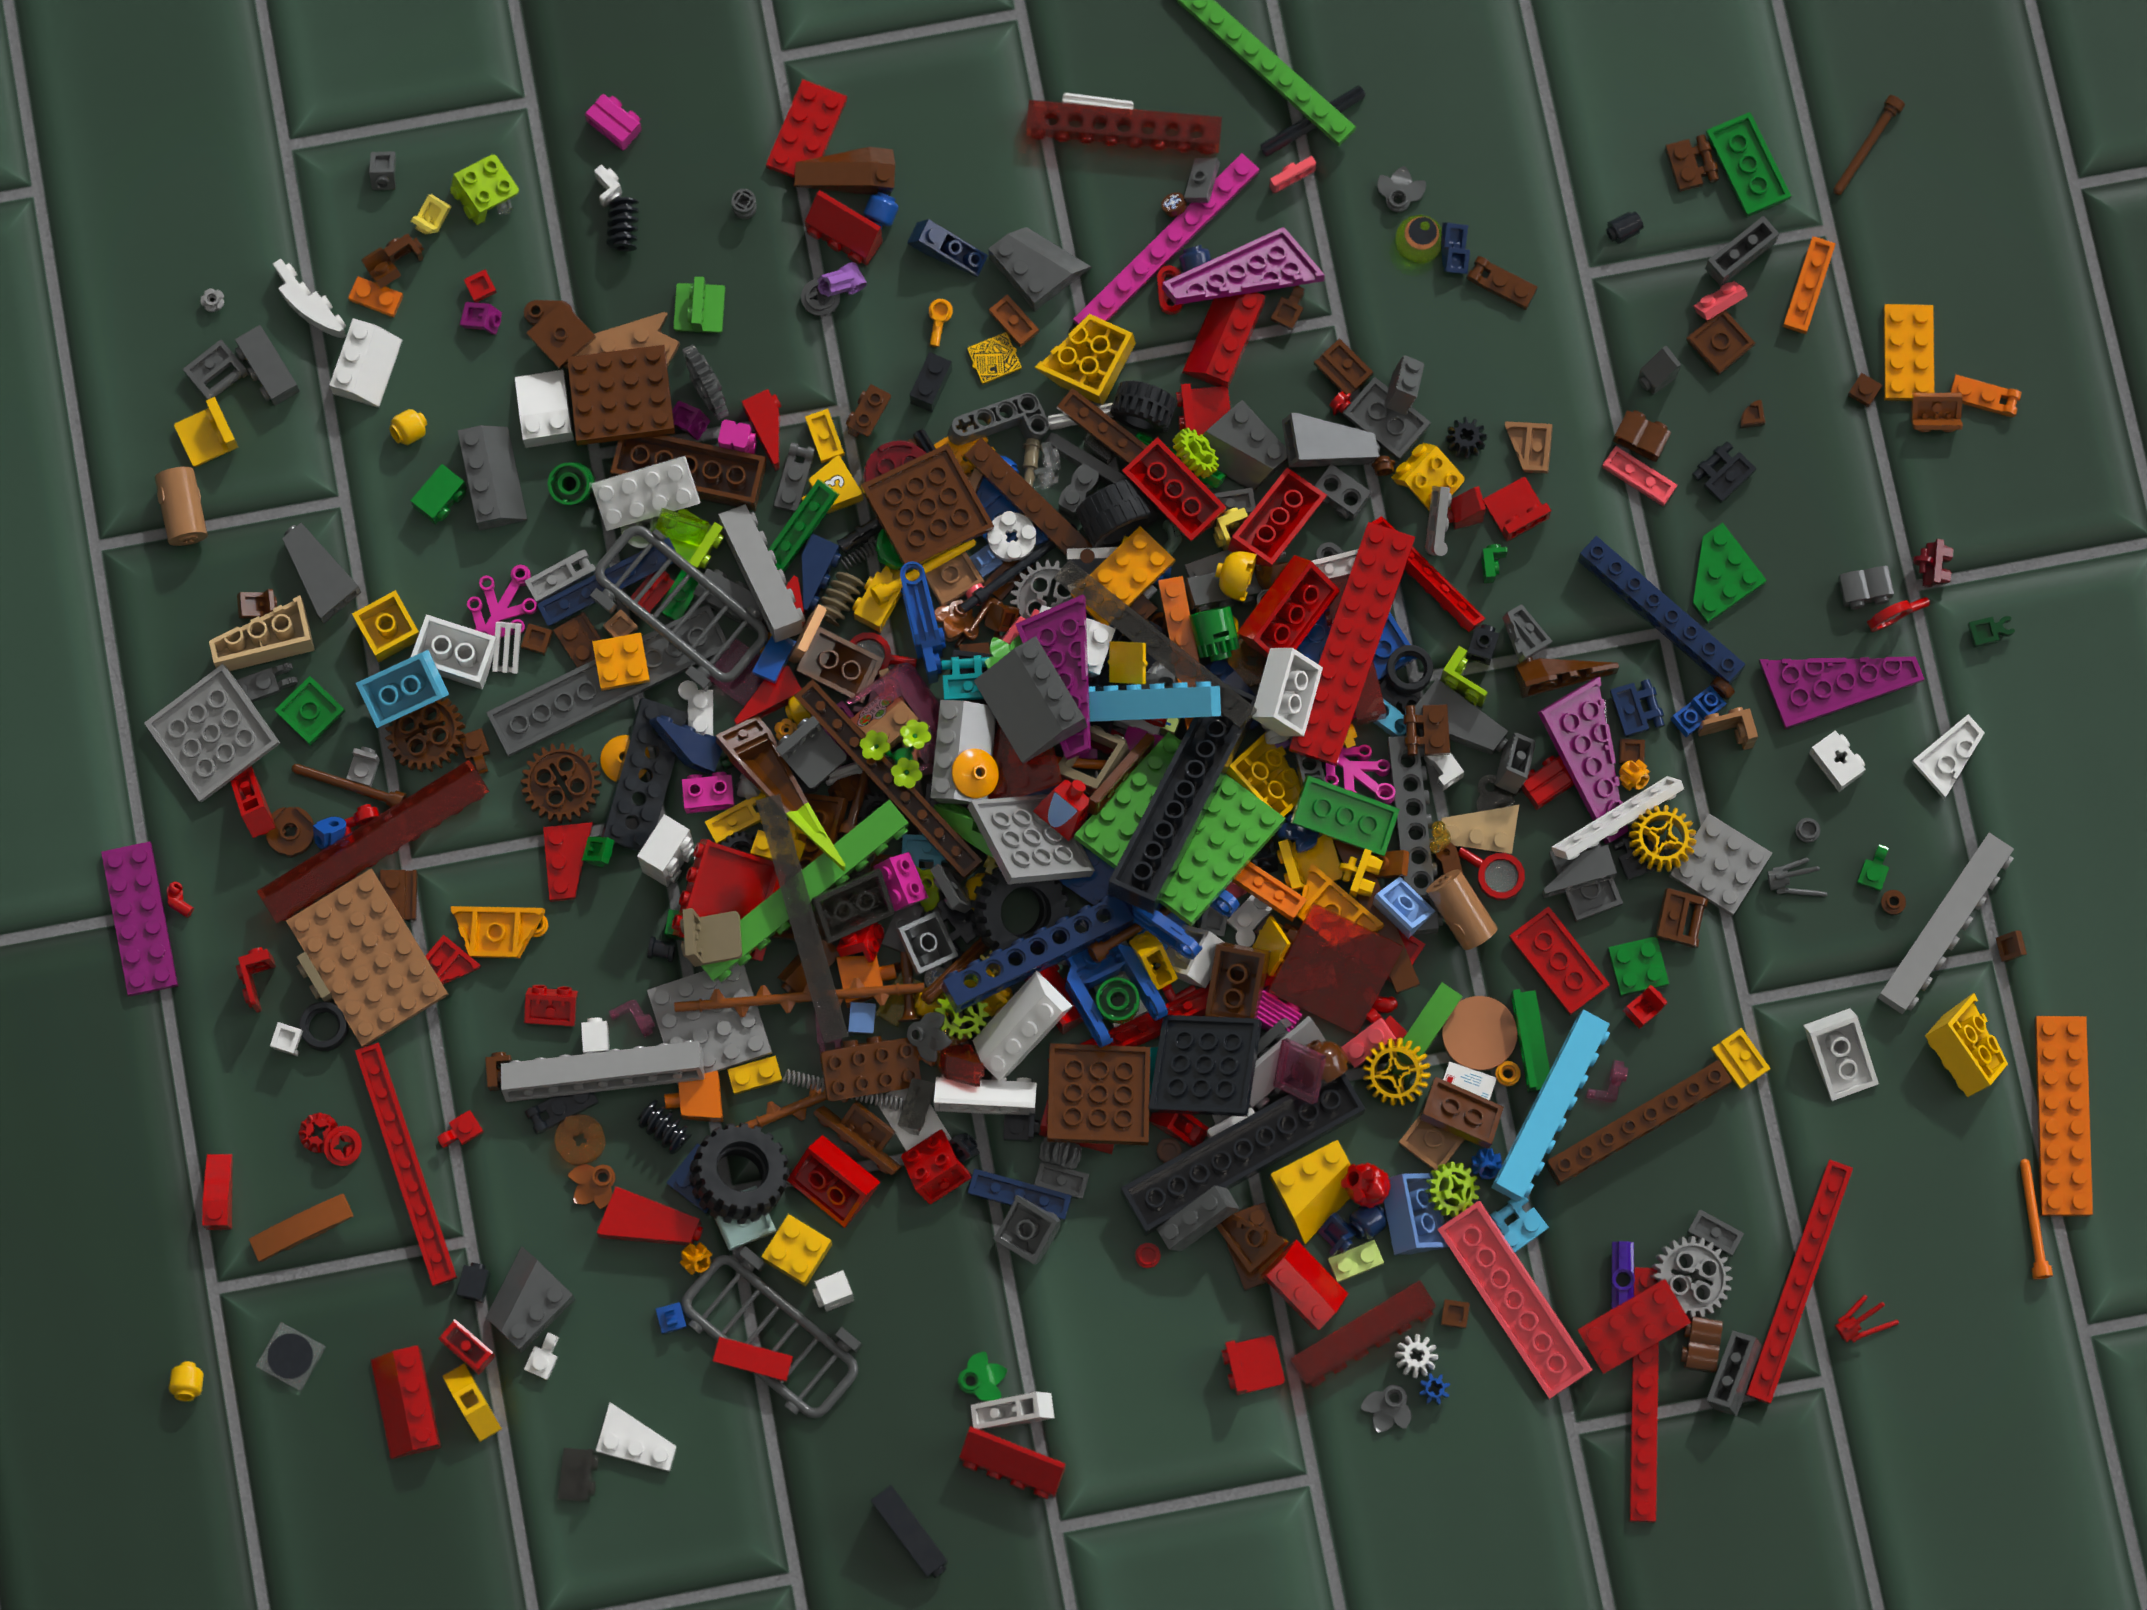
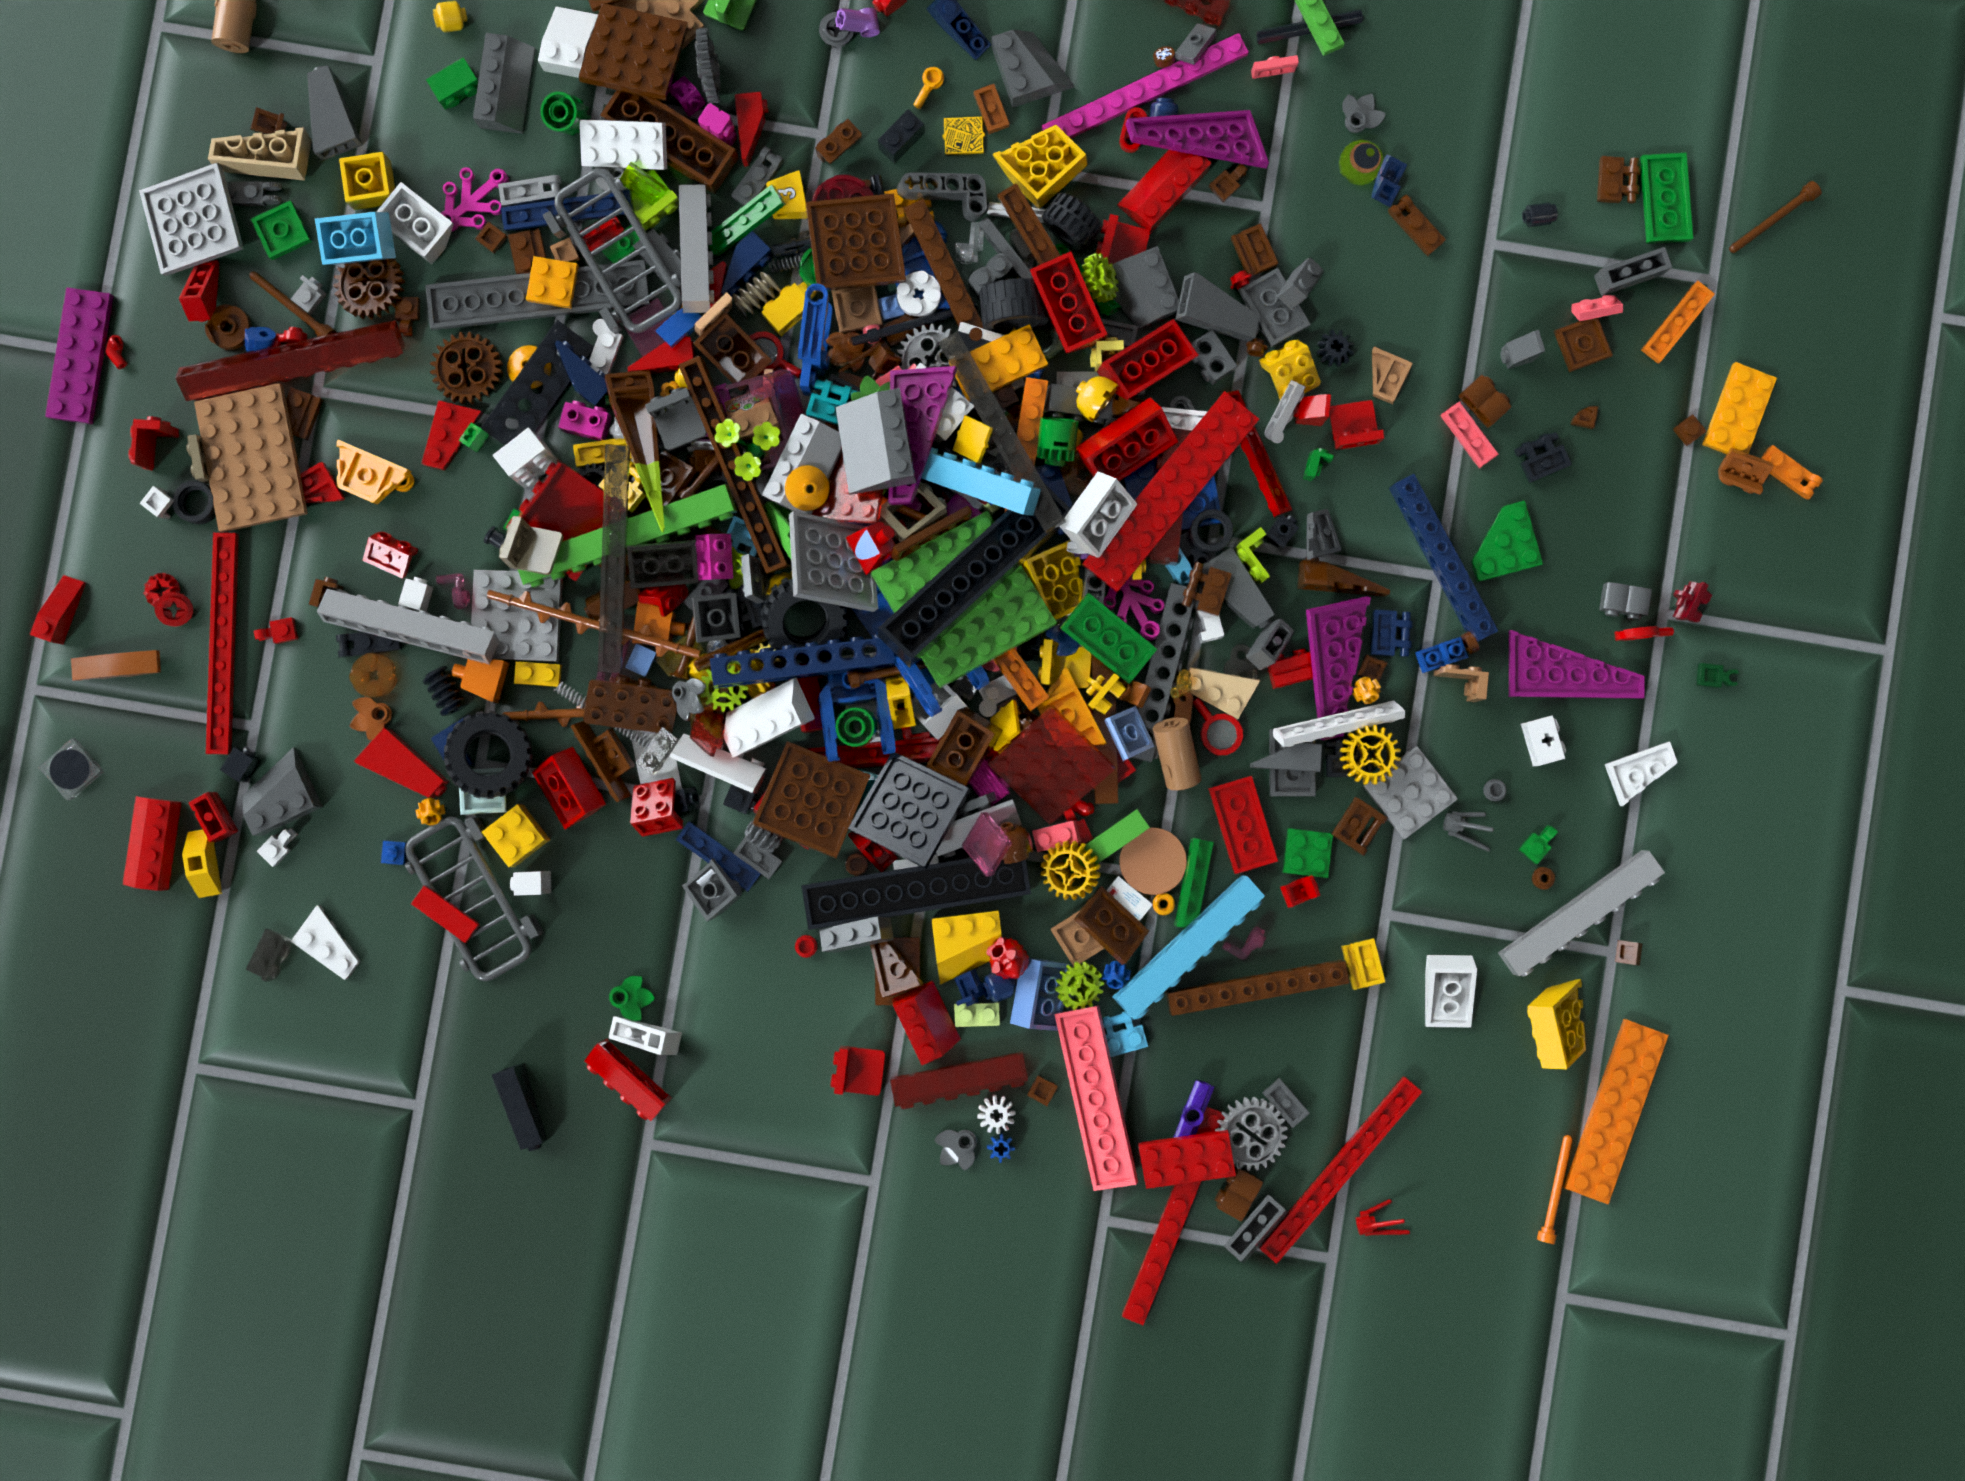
camera: 20 degrees right, 10 degrees up
(505, 668) = (455, 232): white tile -> none
(824, 435) = (795, 150): yellow plate -> none
(882, 592) = (792, 302): yellow piece -> none
(1031, 458) = (960, 234): dark tan pin -> none

